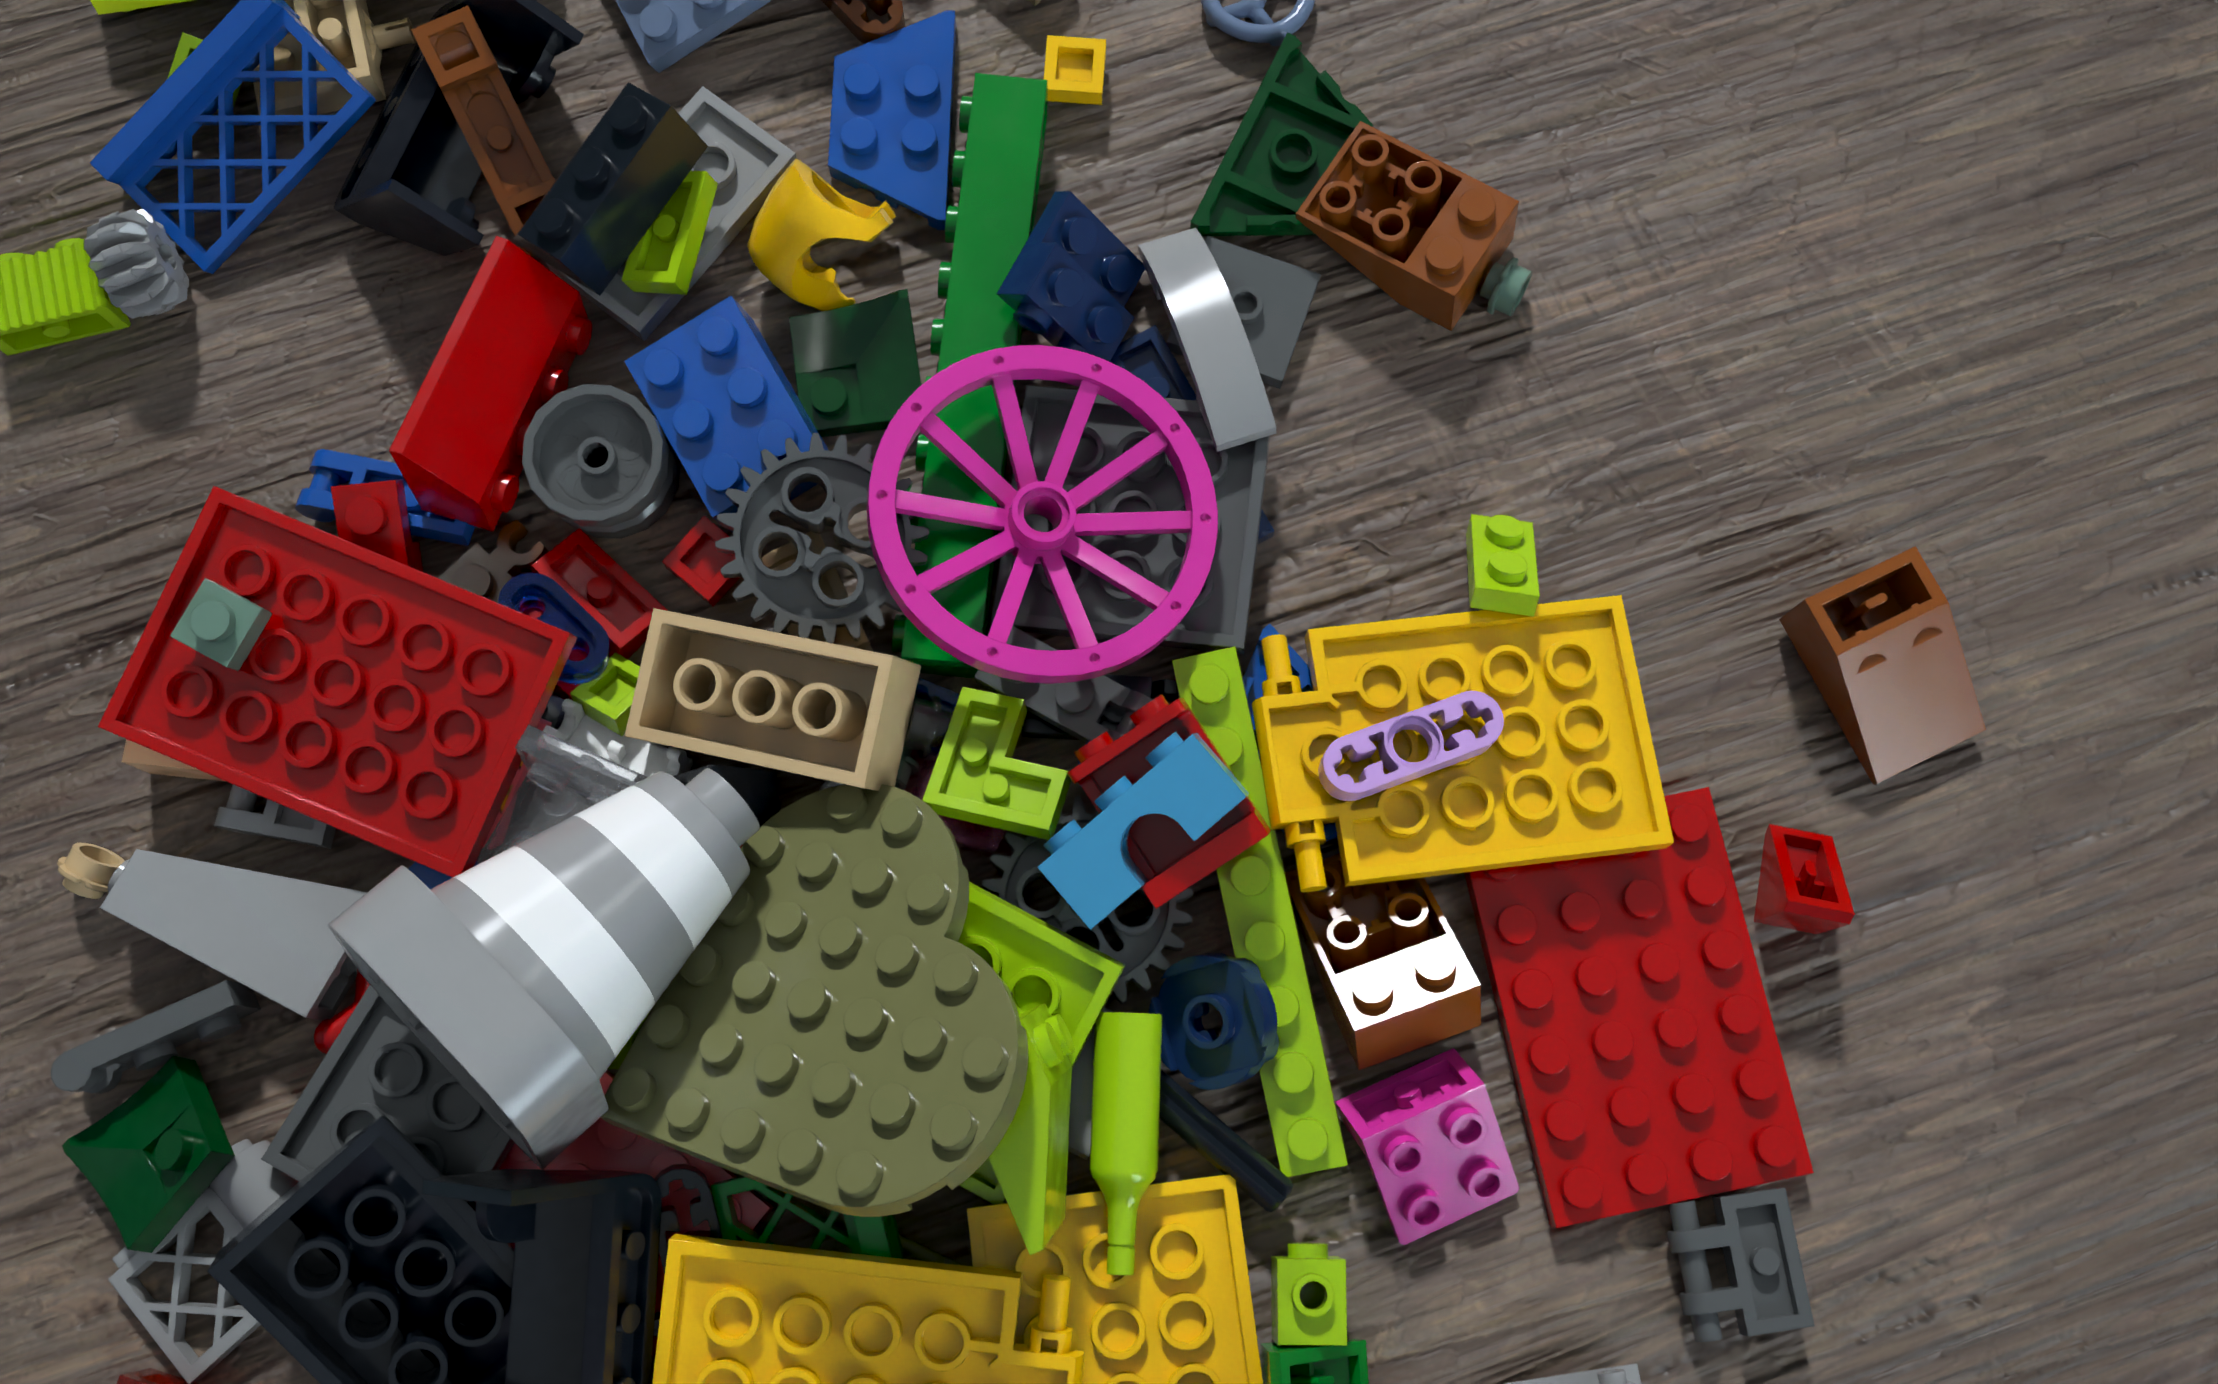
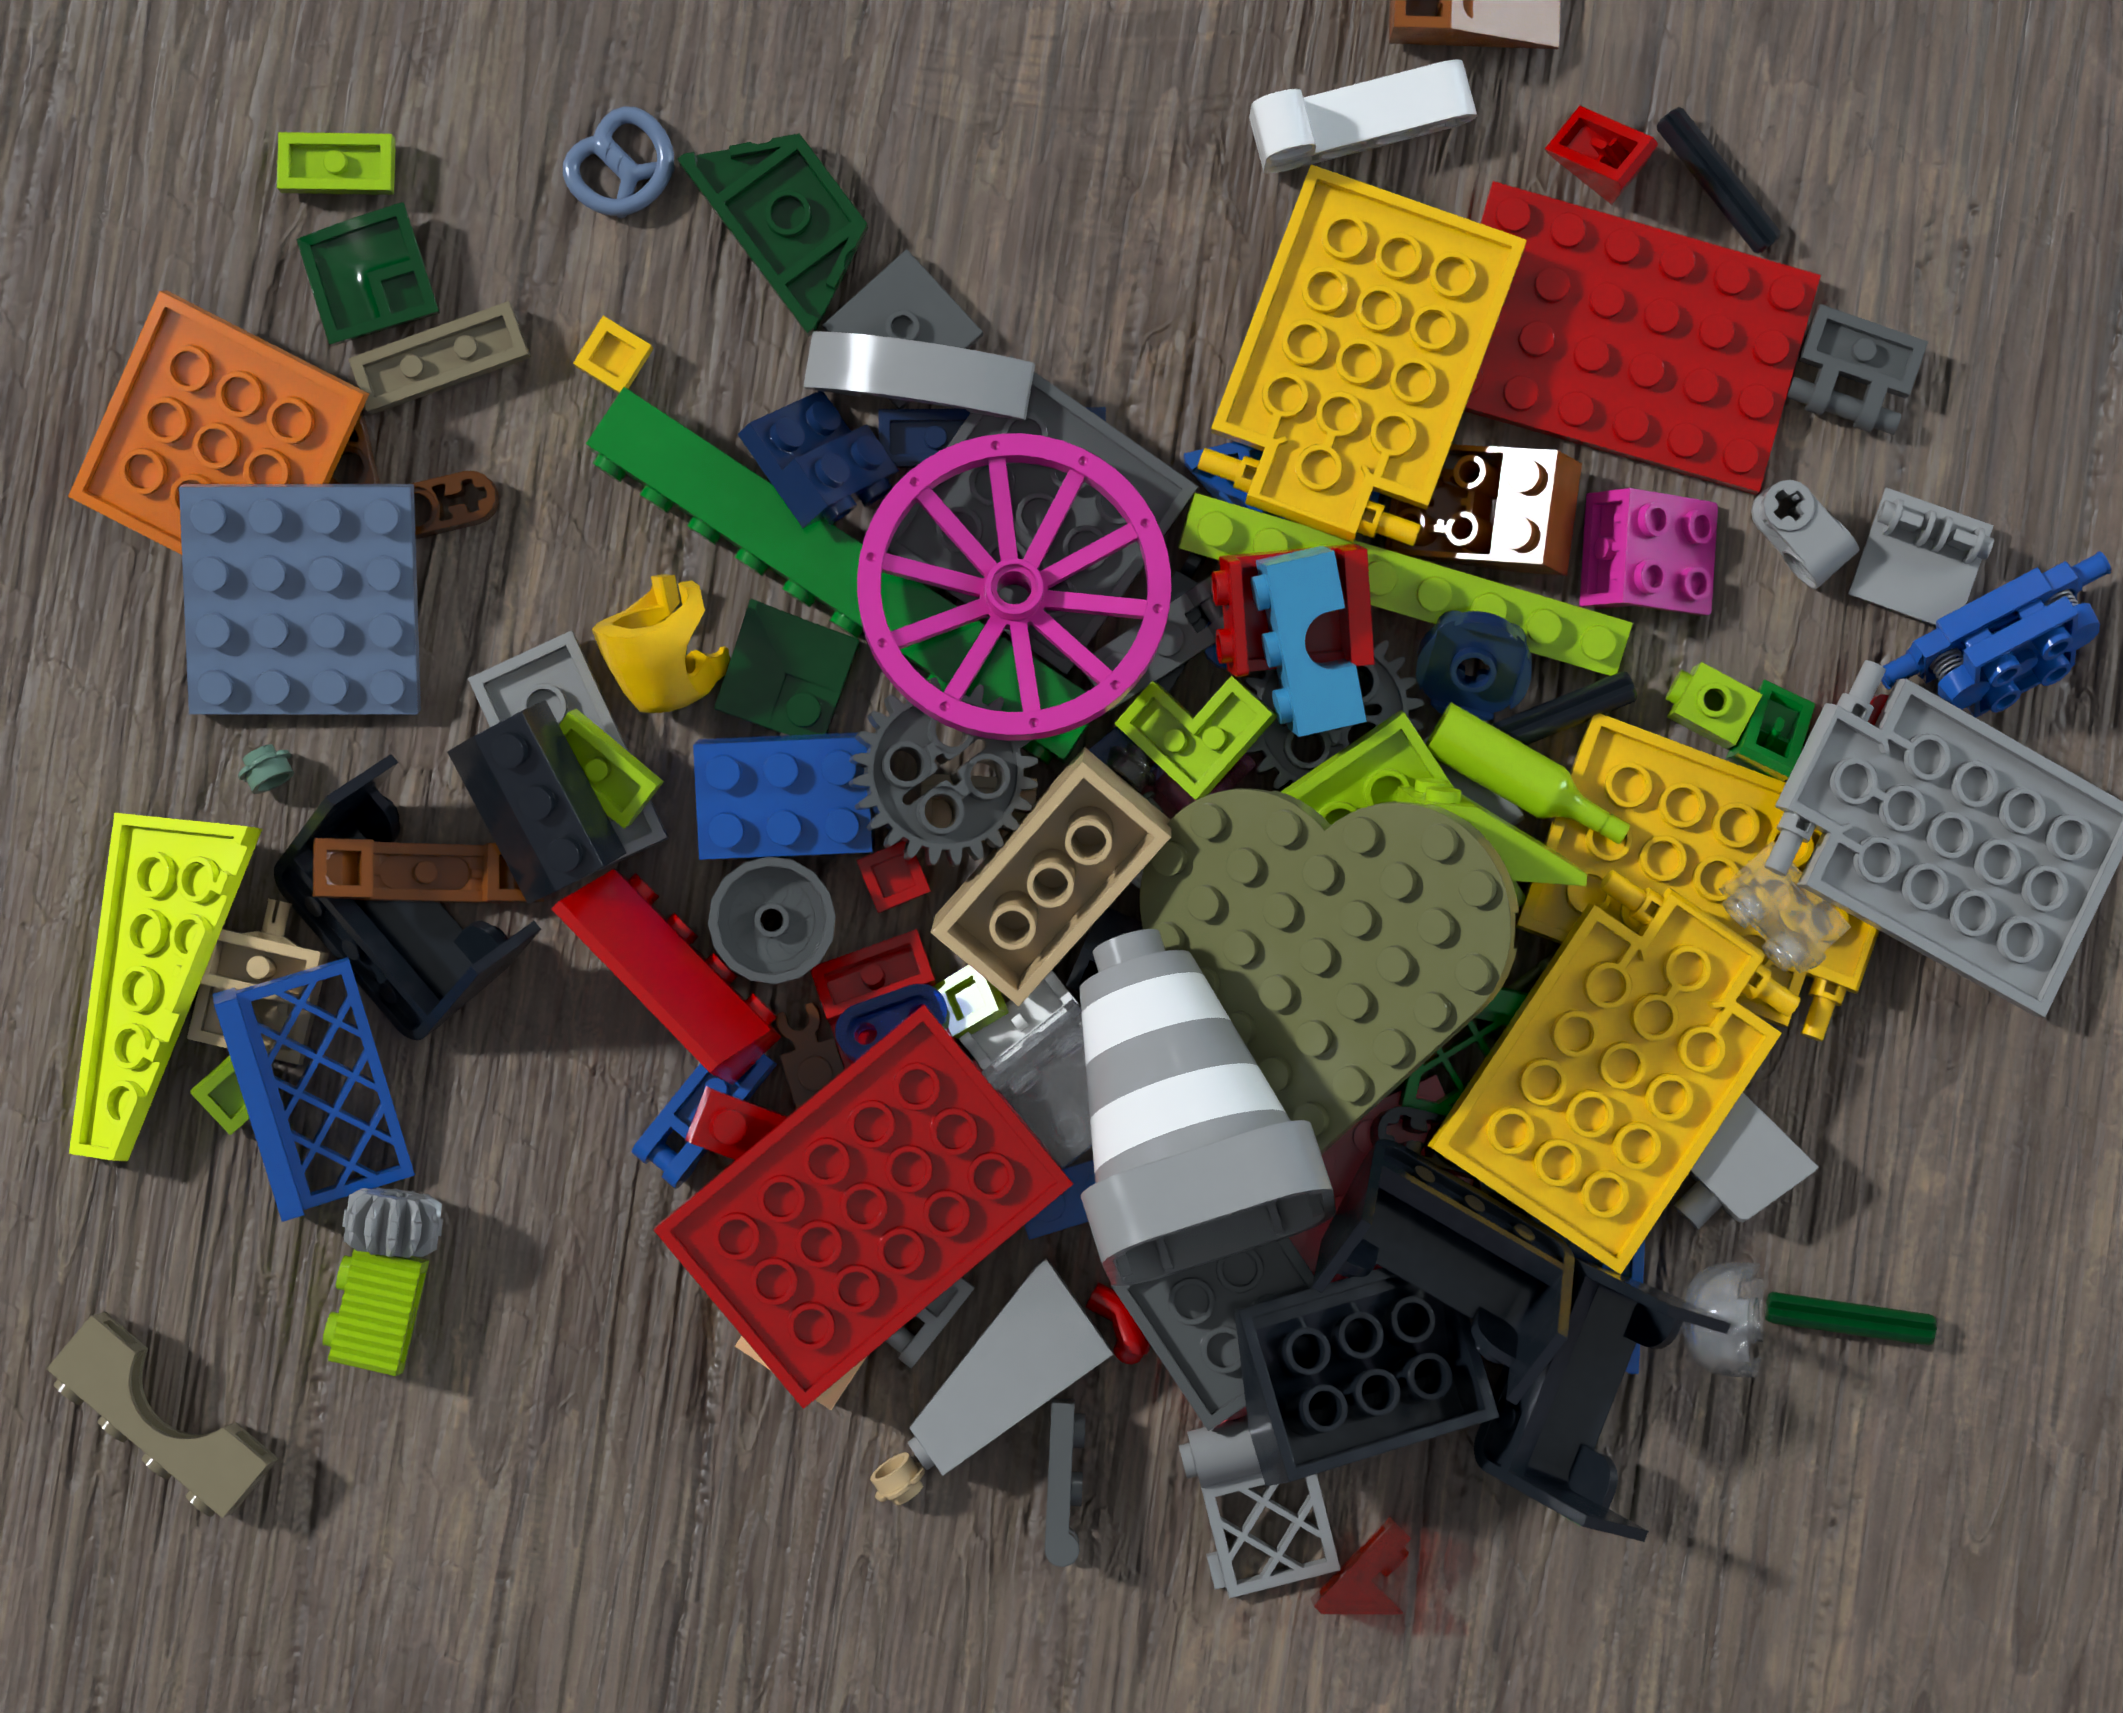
camera: 55 degrees left, 10 degrees up
(154, 1153) = (1153, 1518): dark green plate -> none
(221, 624) = (776, 1272): sand green plate -> none
(897, 117) = (574, 527): blue wing -> none
(1410, 223) = (902, 153): dark orange slope -> none
(1447, 712) = (1369, 361): lavender beam -> none
(1502, 565) = (1234, 243): lime plate -> none
(1505, 286) = (997, 102): sand green plate -> none
(1538, 1304) = (1808, 537): none -> light grey piece
(1694, 621) = (1360, 116): none -> white beam
(1843, 1015) = (1718, 180): none -> black axle

